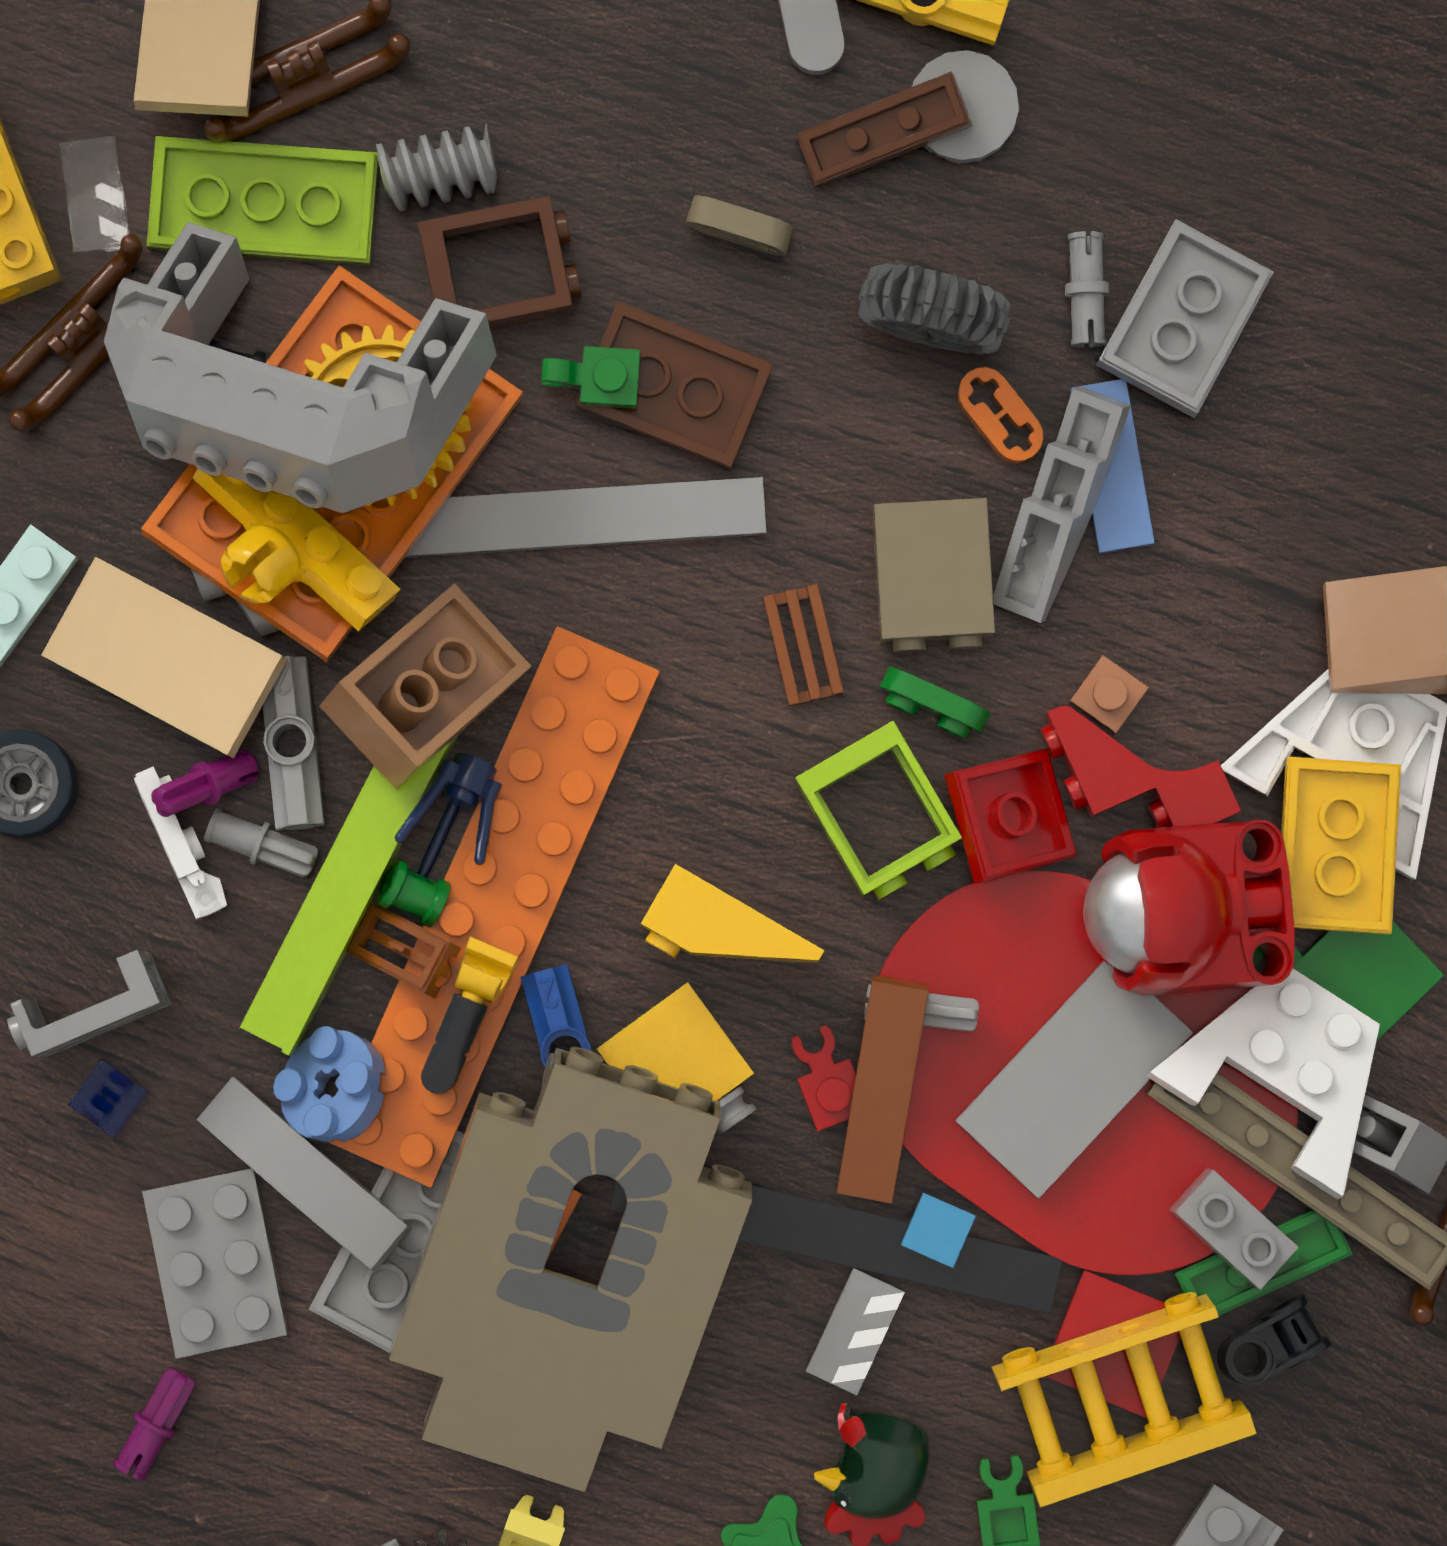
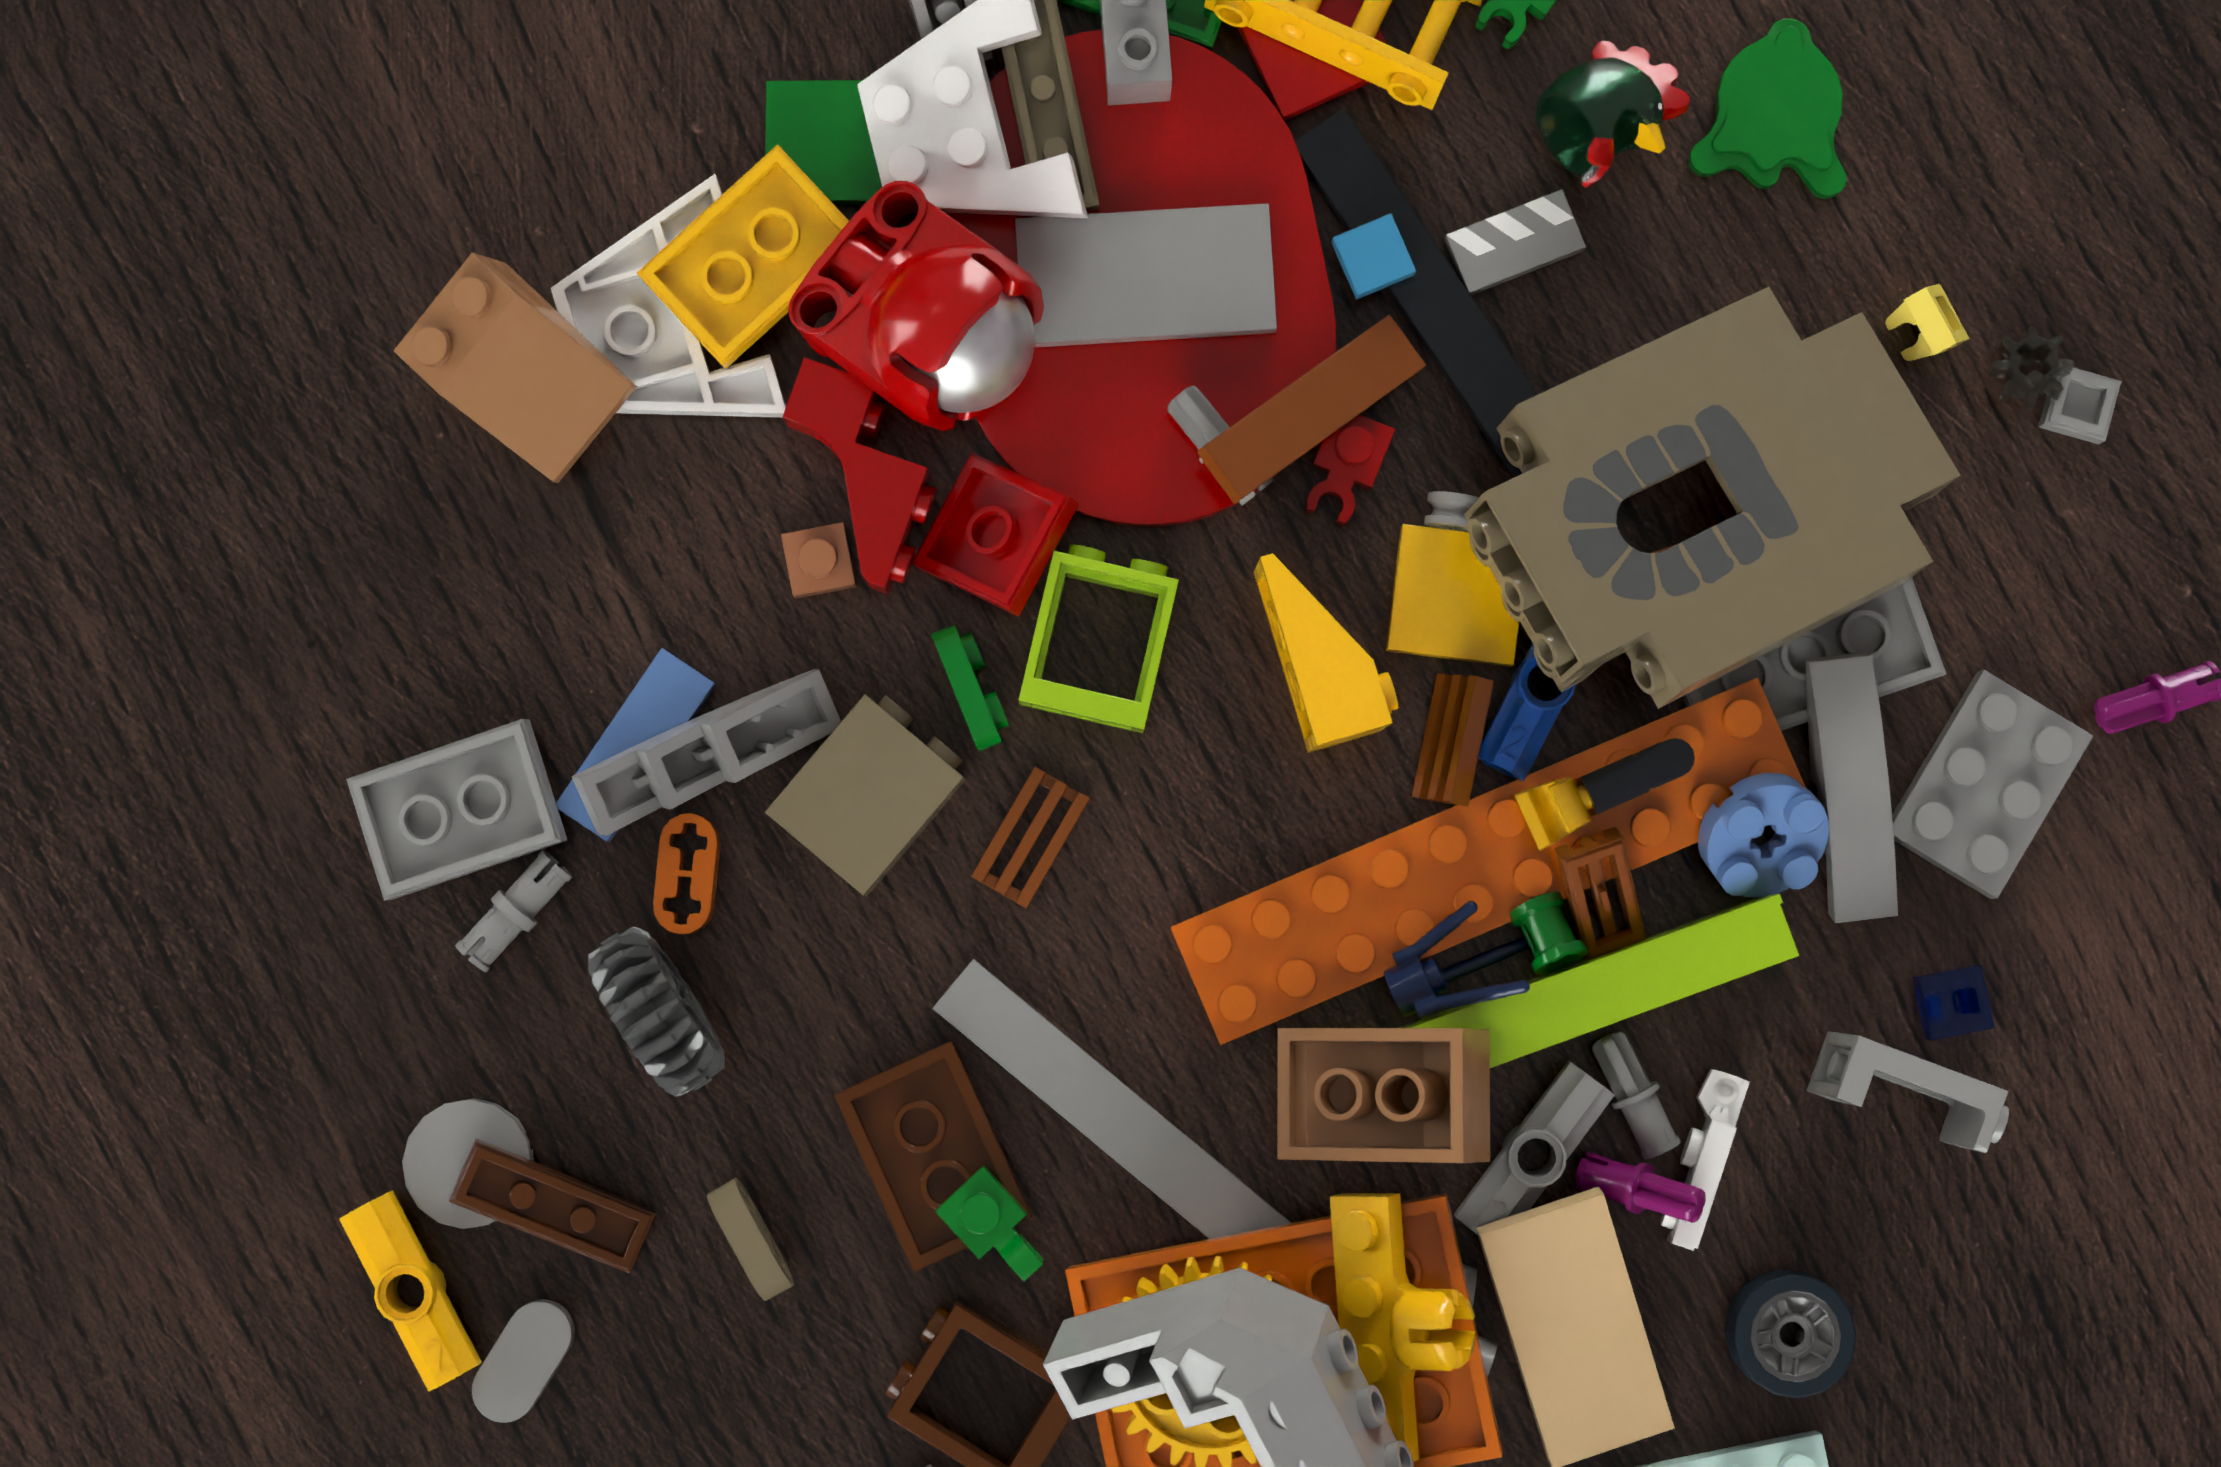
camera: 140 degrees left, 0 degrees up
(590, 961) = (1452, 739): none -> dark orange tile

